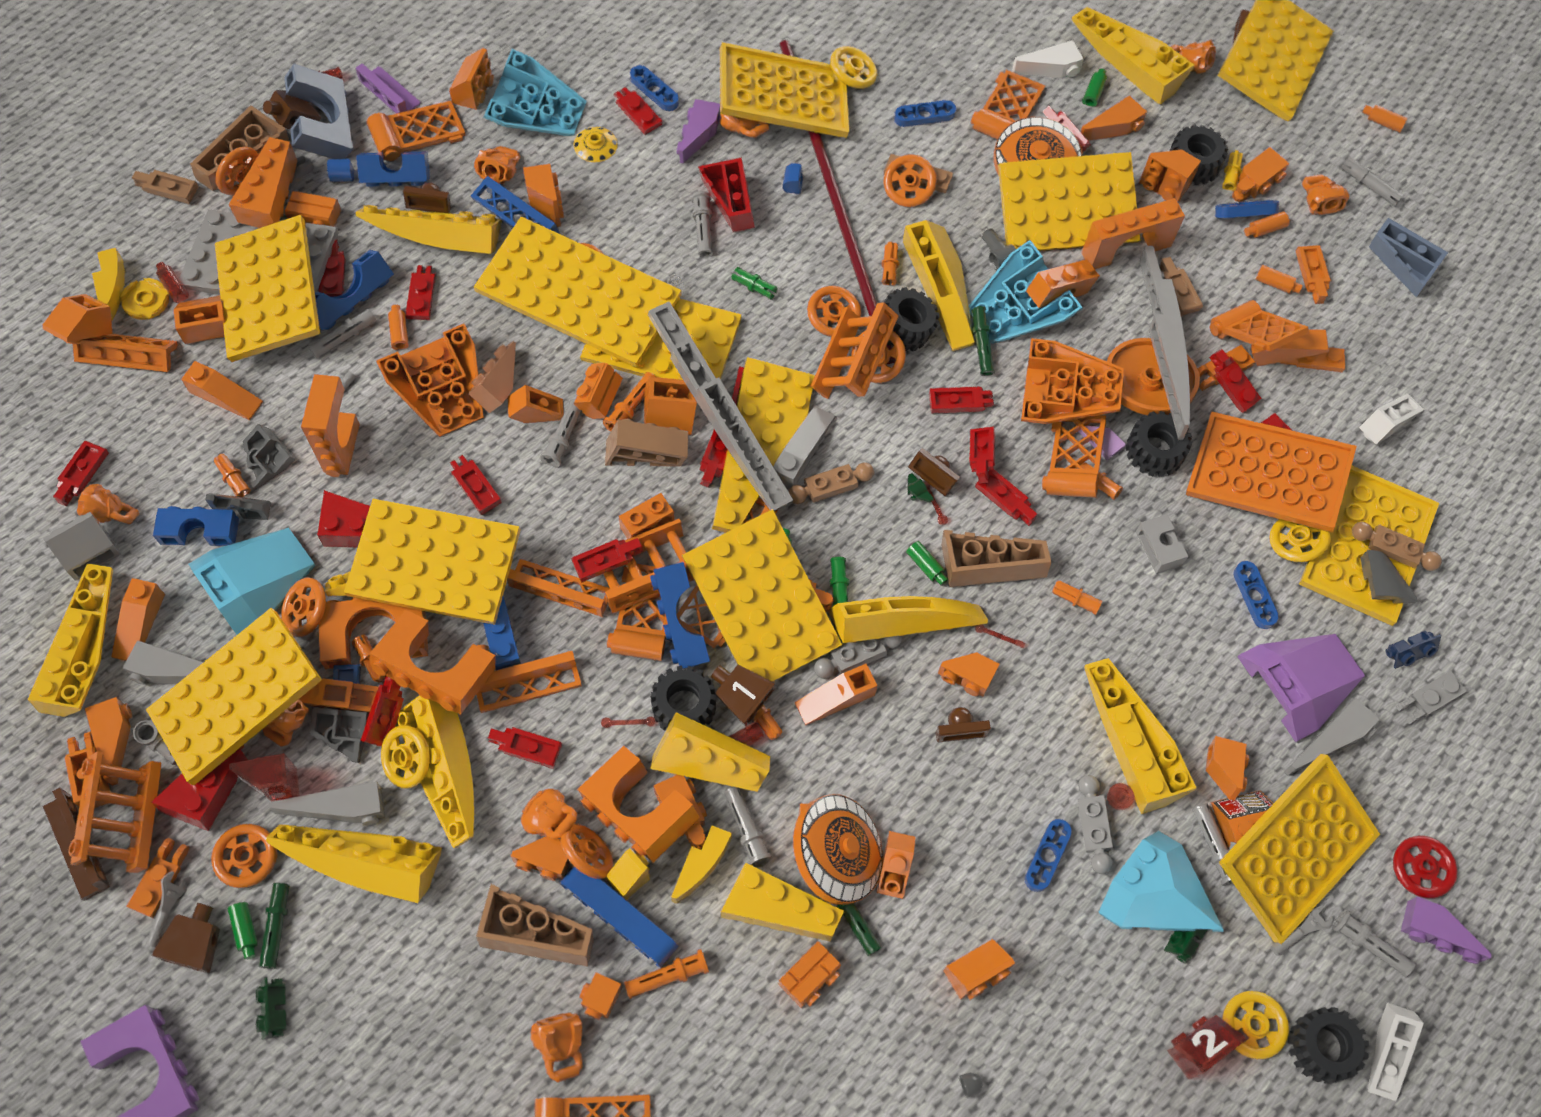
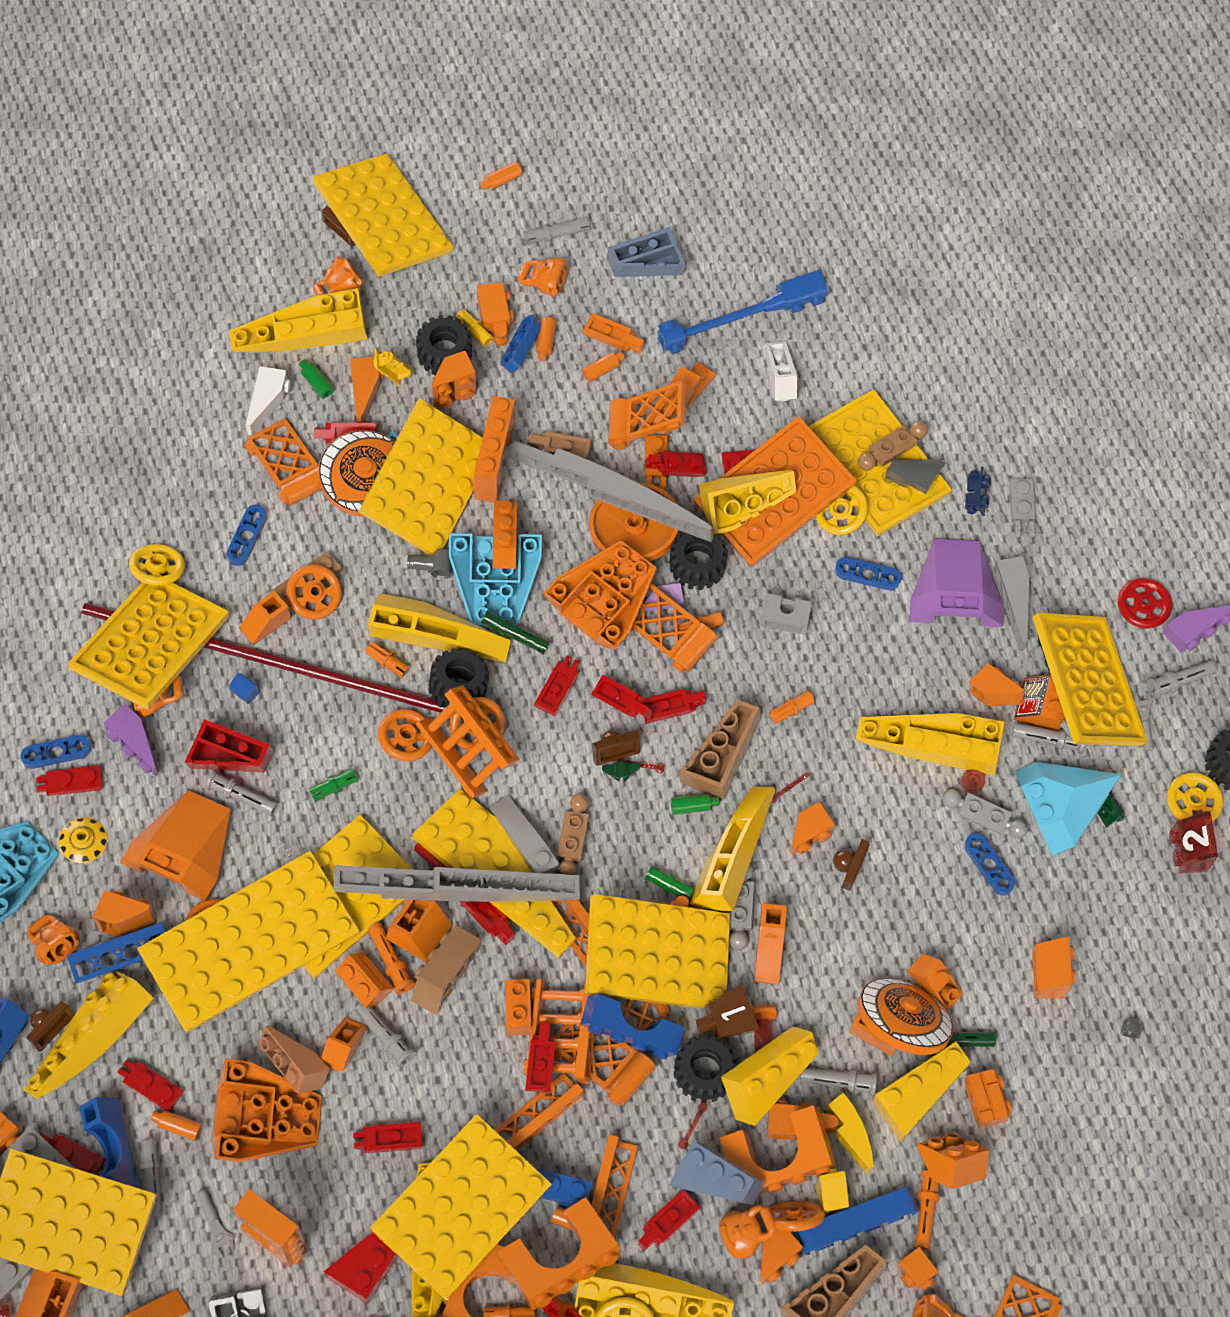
camera: 60 degrees left, 0 degrees up
(583, 759) = (715, 1175): none -> sand blue wedge
(633, 209) = (184, 844): none -> orange wedge
(725, 972) = (954, 1160): none -> orange slope
(862, 159) = (265, 618): none -> orange slope
(1144, 126) = (391, 366): none -> yellow hinge
(1239, 442) = (736, 499): none -> yellow wedge
(1473, 388) = (790, 295): none -> blue bar

